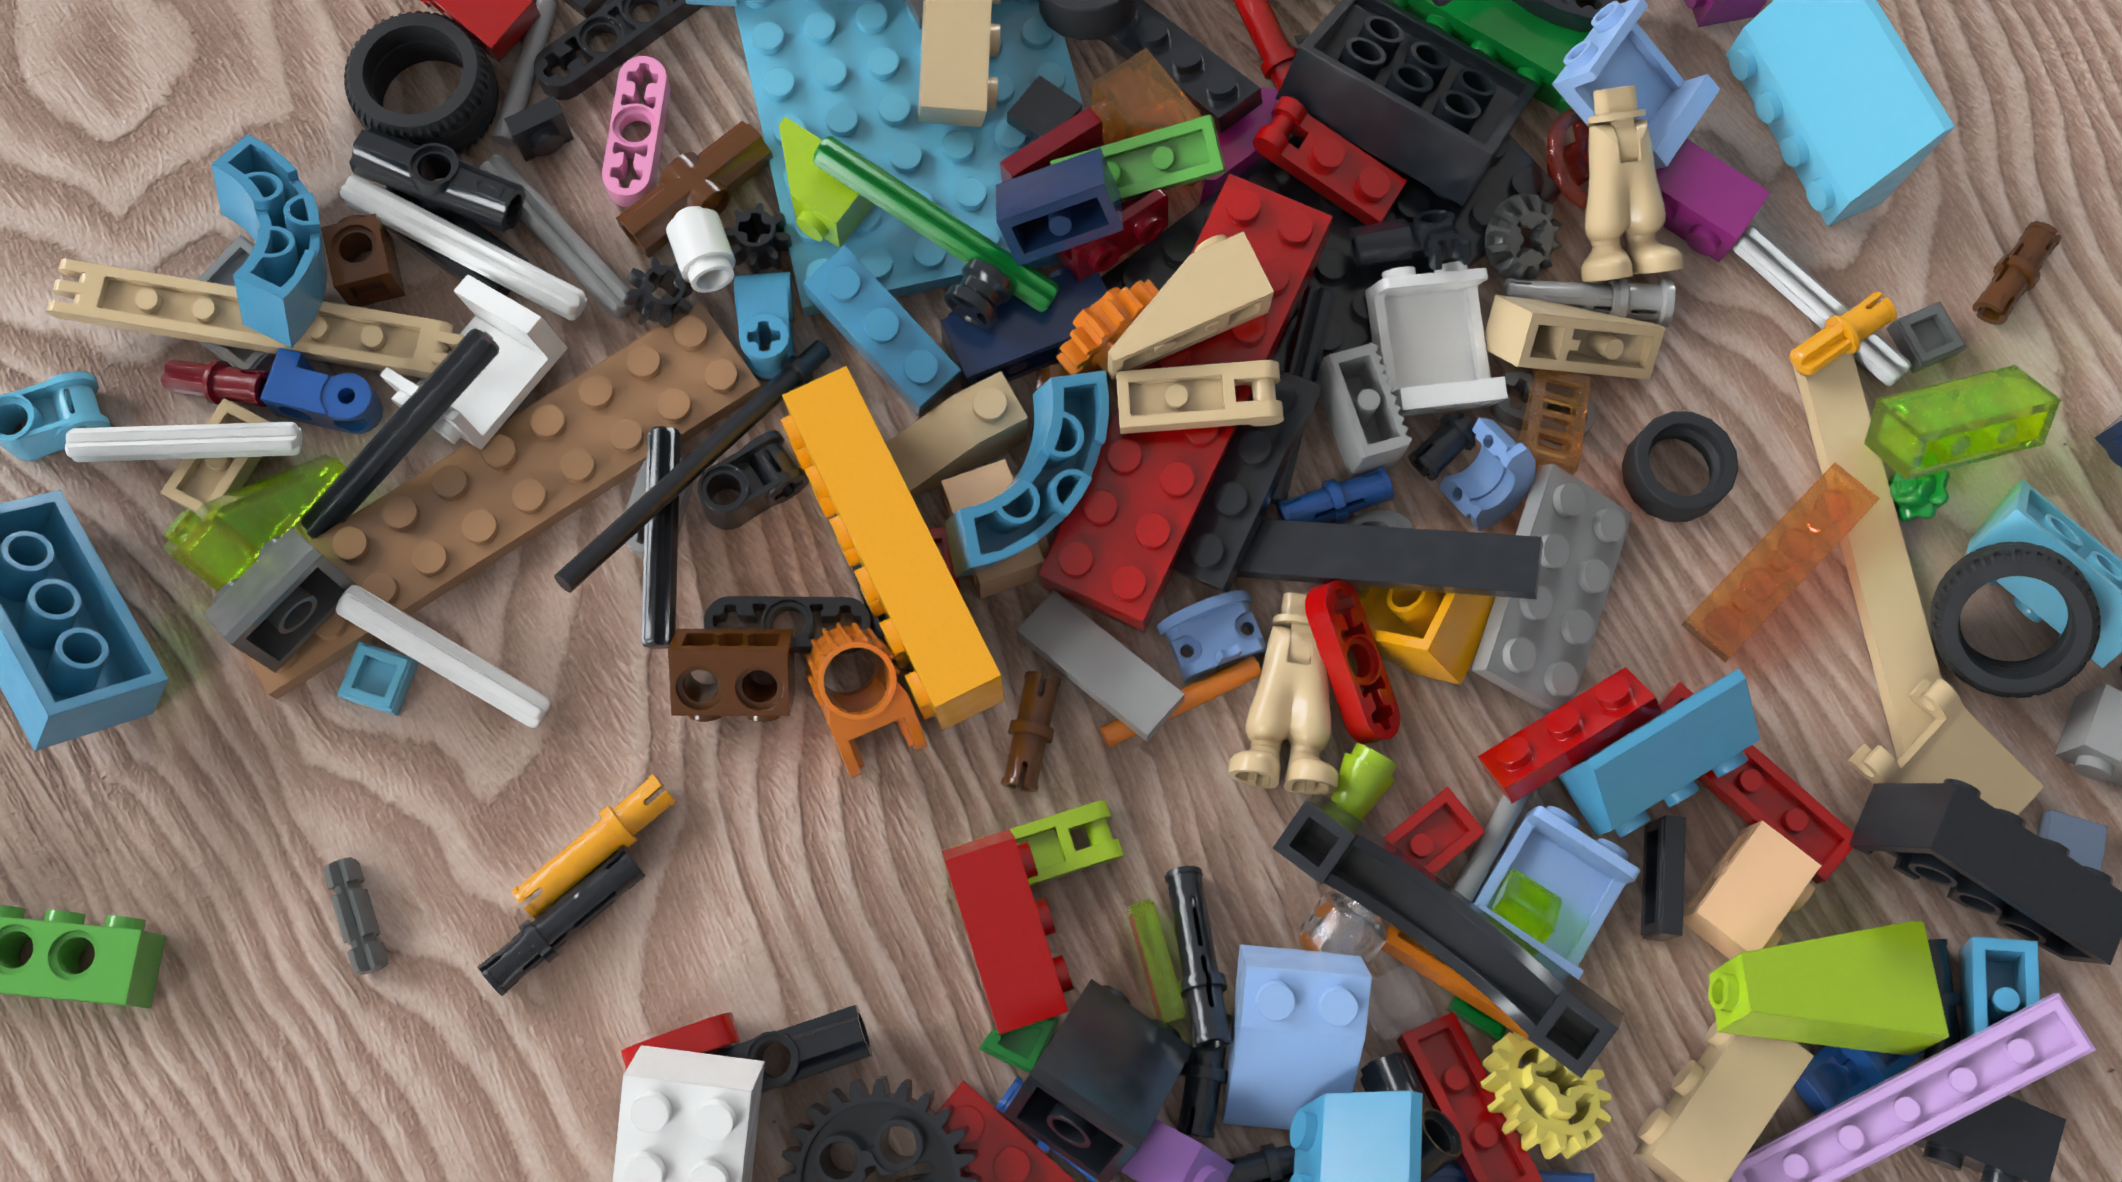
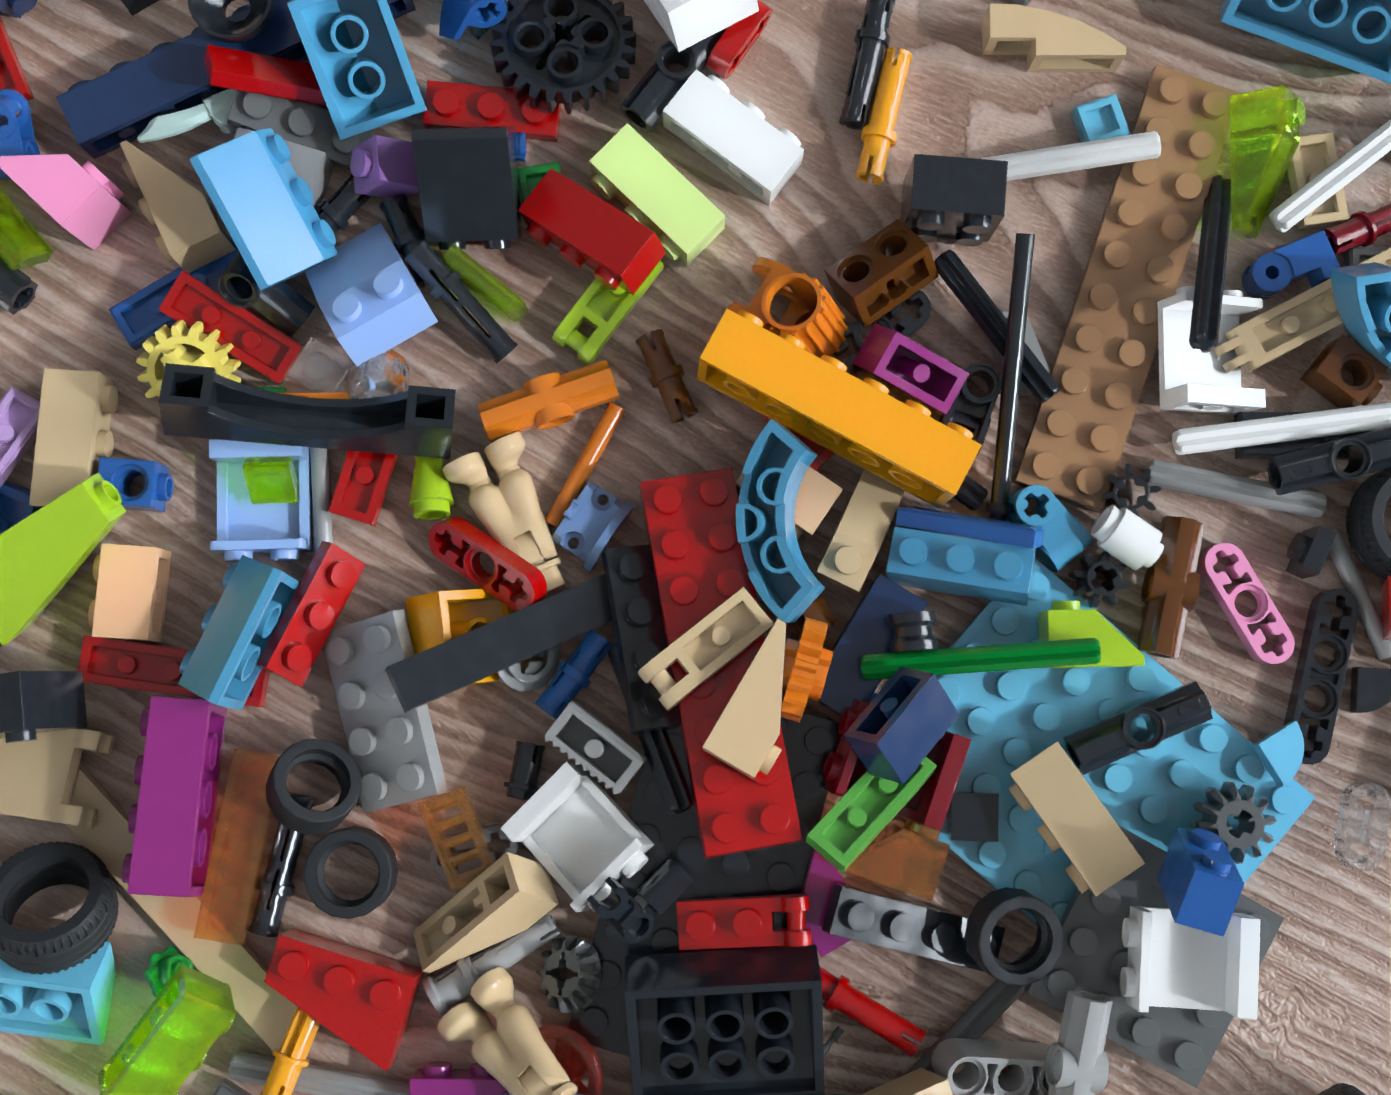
camera: 150 degrees right, 10 degrees up
(278, 600) = (1196, 108): dark grey slope -> none
(358, 802) = (1048, 40): none -> tan slope
(598, 688) = (954, 198): none -> black brick
(769, 935) = (733, 135): none -> white brick
(782, 549) = (910, 368): none -> magenta brick
(802, 73) = (1164, 718): none -> black piece
(837, 348) = (970, 526): none -> blue tile
(904, 929) = (656, 195): none -> yellowish green brick
(1100, 665) = (650, 447): light grey tile -> none
(1175, 789) = (548, 400): none -> orange piece
(1494, 480) = (475, 760): medium blue piece -> none
(1641, 531) = (337, 762): none -> black tyre
(1663, 878) = (192, 561): black tile -> none
(1698, 1028) = (158, 482): none -> blue brick
(1749, 361) = (347, 990): none -> red wedge
(1787, 481) = (266, 918): none -> black pin
(1831, 628) = (175, 797): none -> magenta brick

